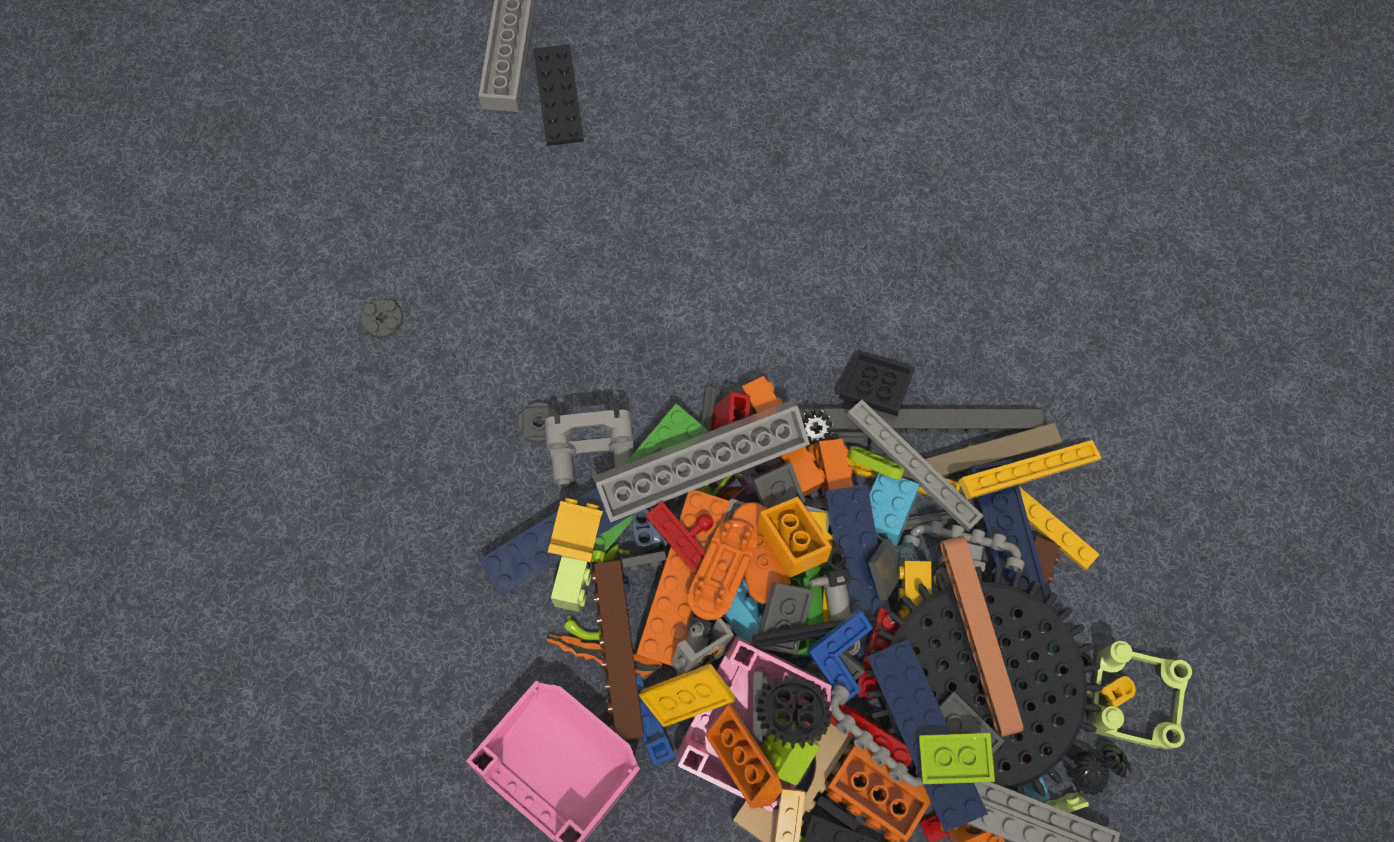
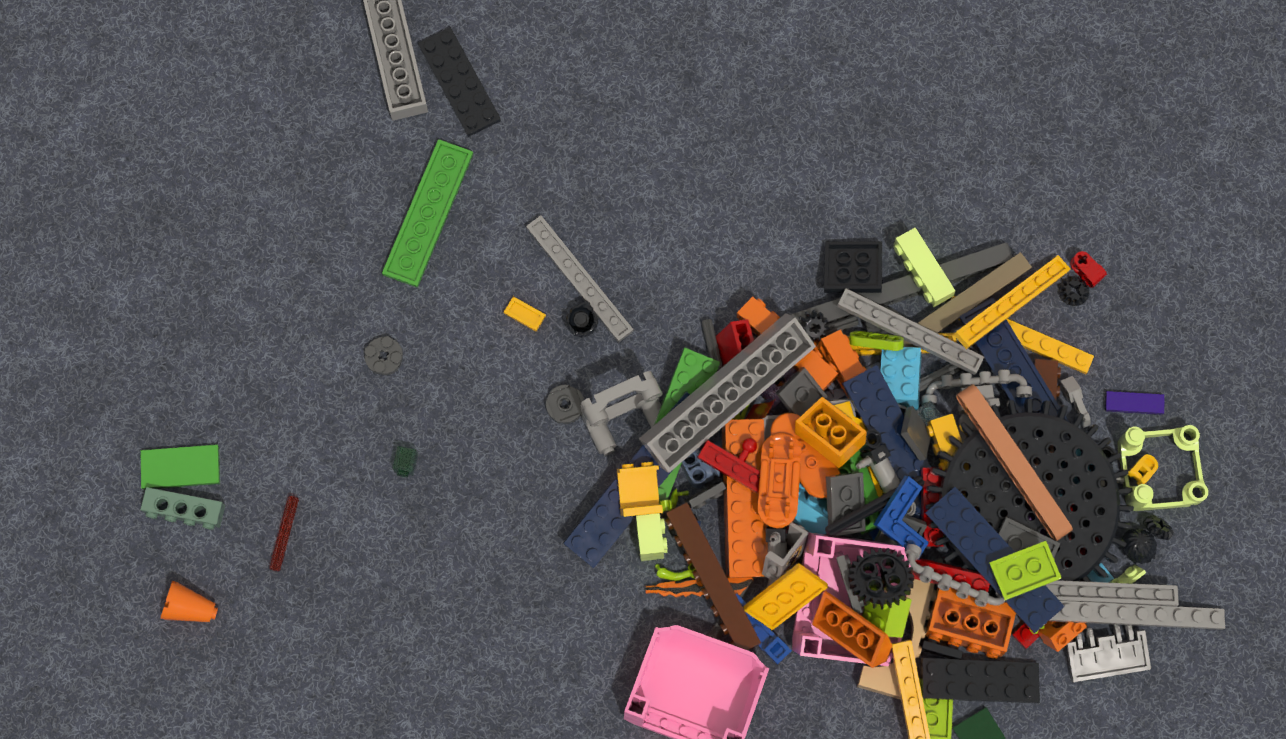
camera: 15 degrees left, 5 degrees up
(81, 493) = (187, 605): none -> orange cone
(99, 380) = (154, 498): none -> sand green brick
(141, 358) = (180, 467): none -> bright green tile
(211, 456) = (284, 533): none -> clear red axle
(358, 425) = (405, 461): none -> clear green brick
(478, 201) = (427, 213): none -> bright green plate
(534, 324) = (524, 314): none -> yellow tile
(586, 346) = (585, 318): none -> black hair
(601, 308) = (579, 278): none -> light grey plate
(949, 406) = (924, 267): none -> yellowish green brick
(1066, 585) = (1073, 393): none -> light grey piece
(1096, 490) = (1074, 299): none -> black gear
(1119, 465) = (1088, 270): none -> red piece
(1128, 617) = (1134, 402): none -> dark purple tile

